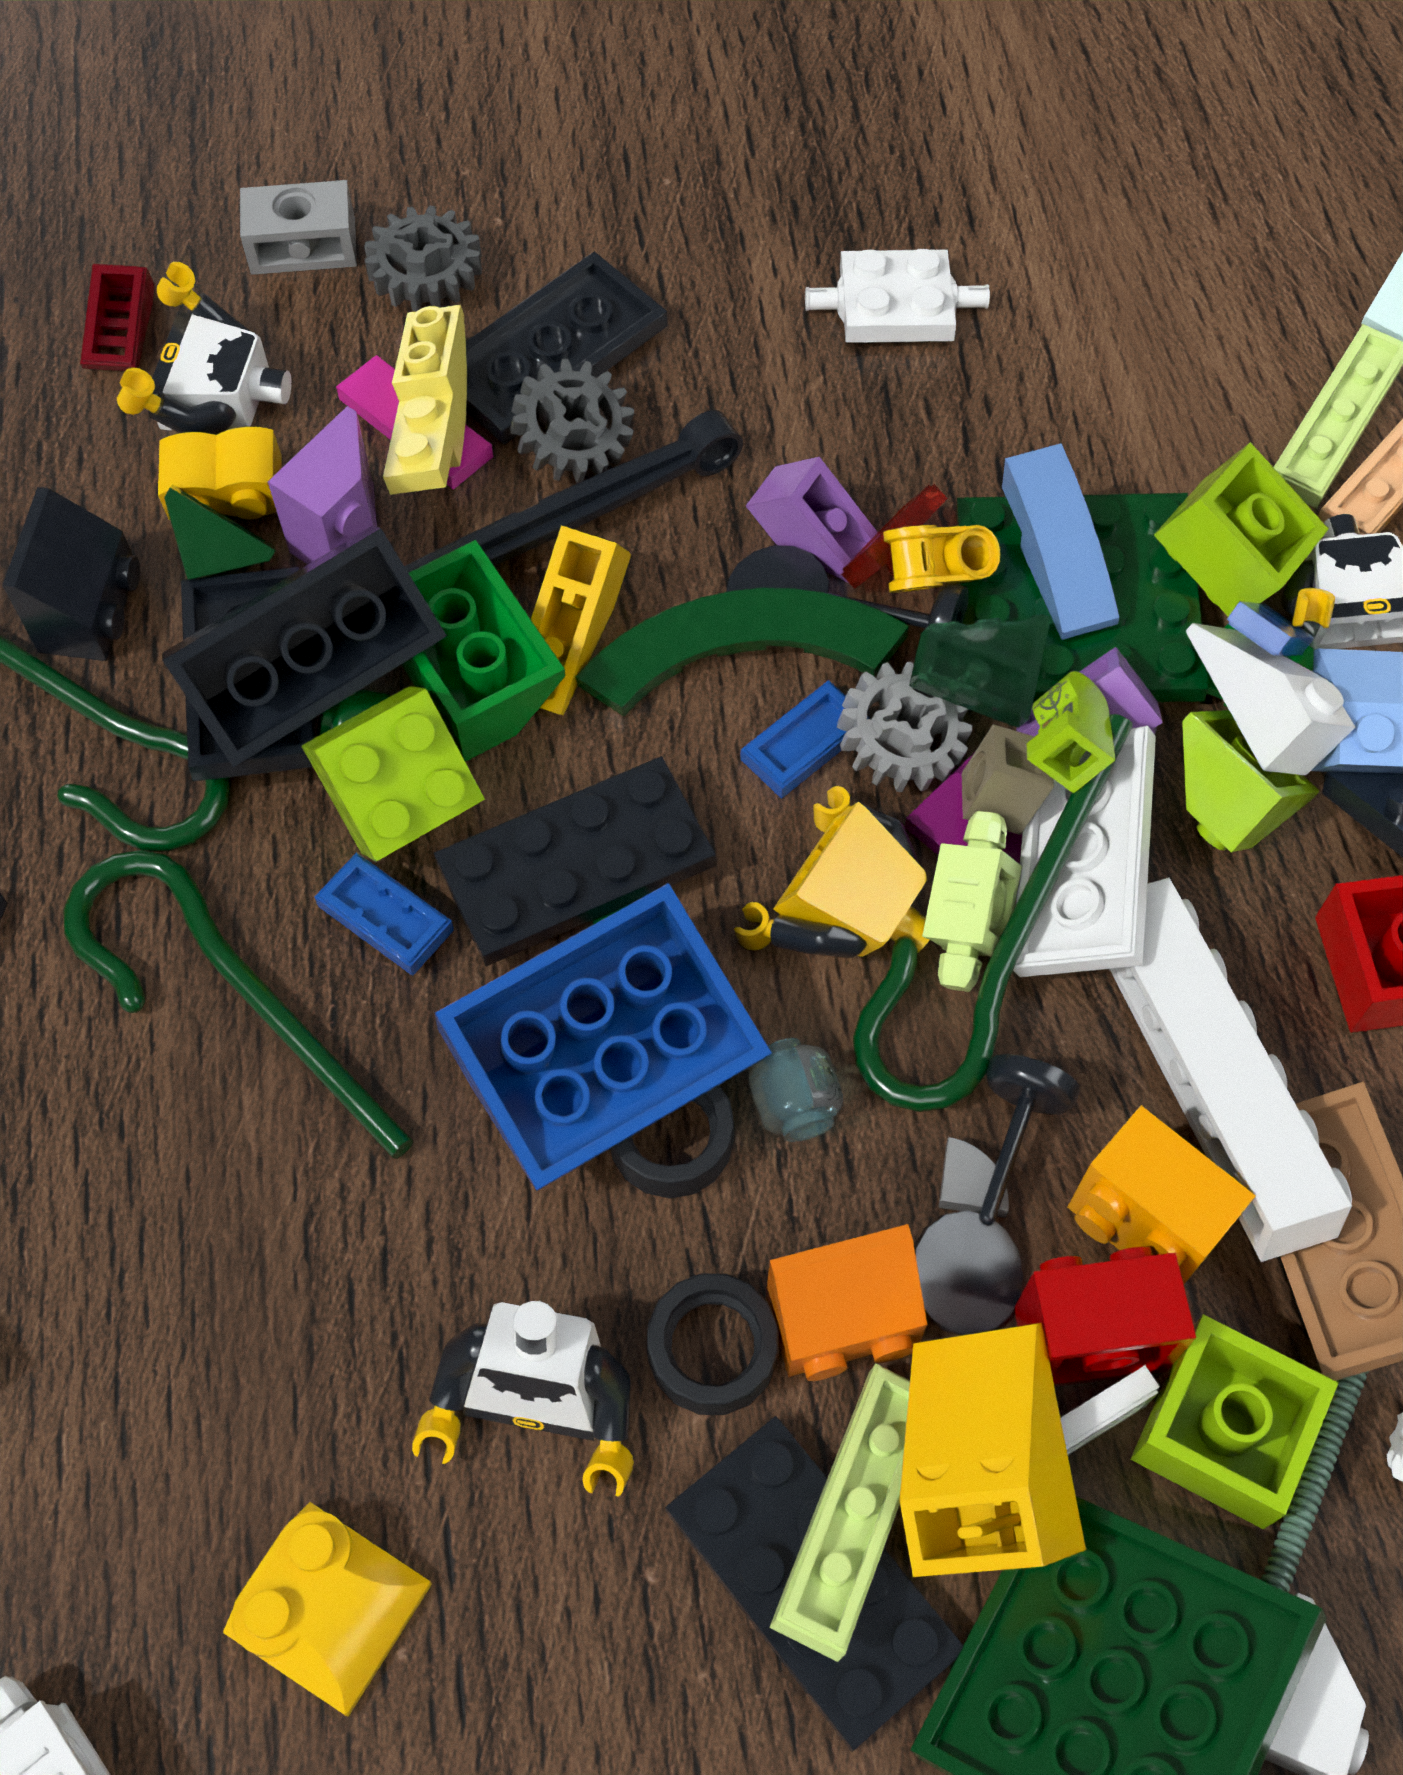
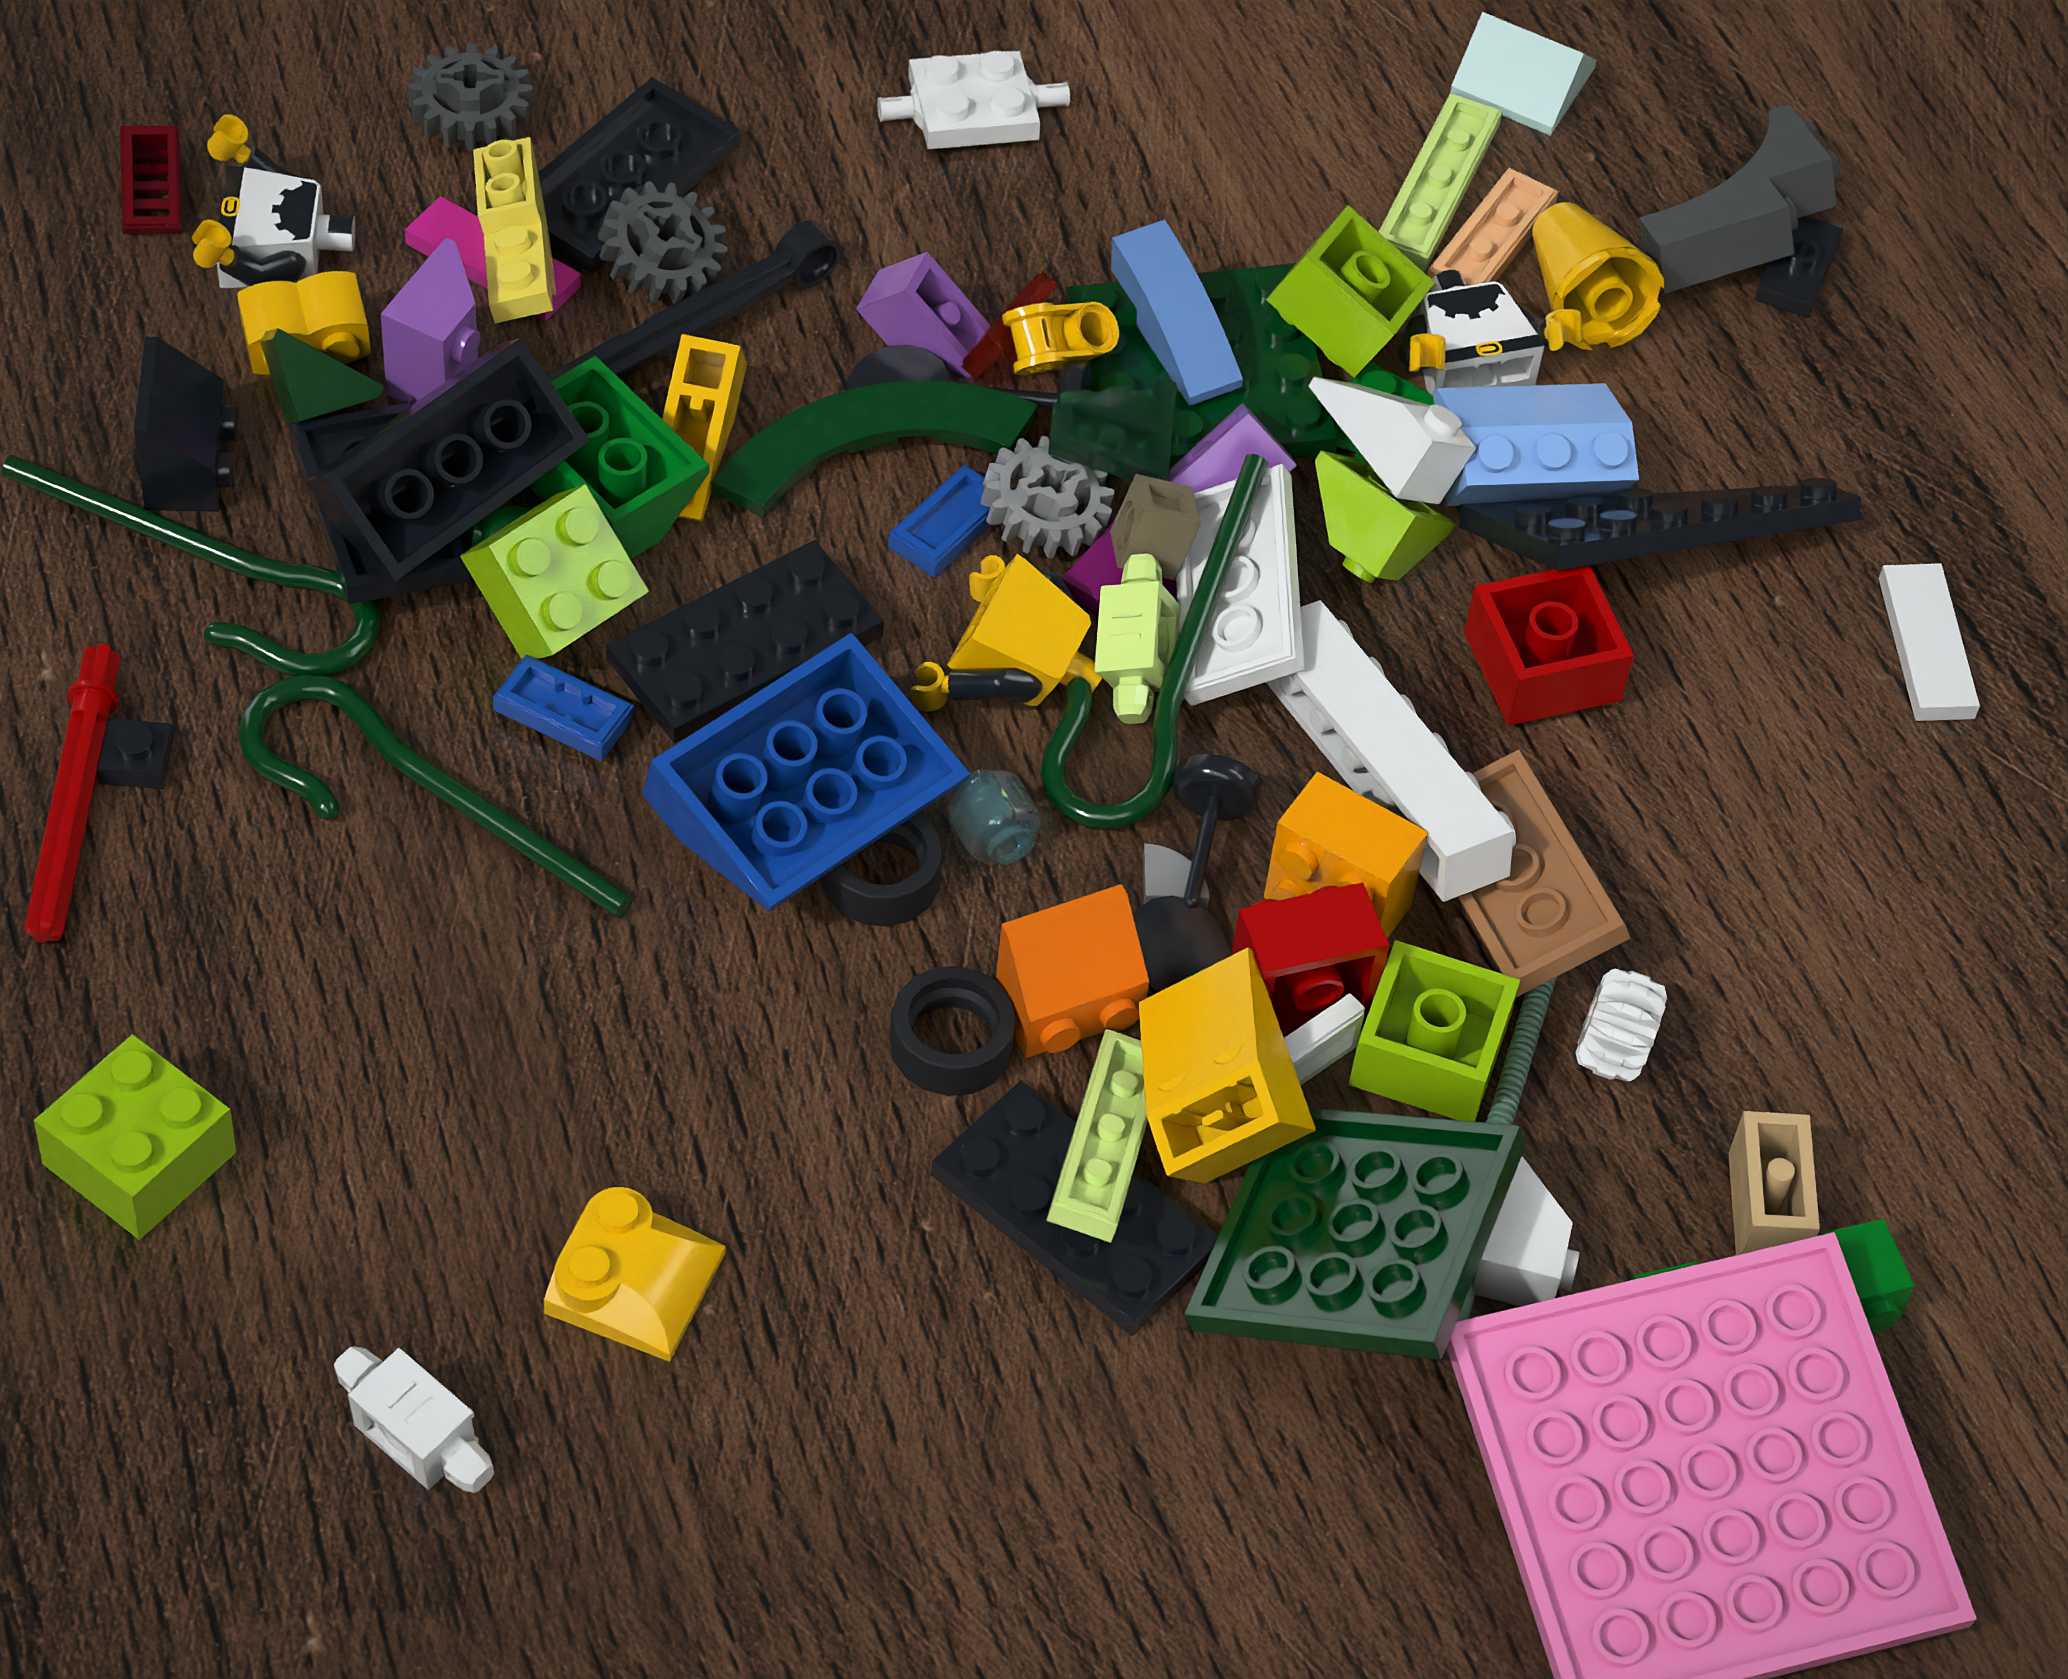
camera: 15 degrees left, 10 degrees down
(298, 227) = (329, 75): light grey brick -> none
(537, 1375) = (795, 1060): torso -> none
(1072, 721) = (1208, 467): lime leg -> none
(1269, 629) = (1387, 373): tile -> none

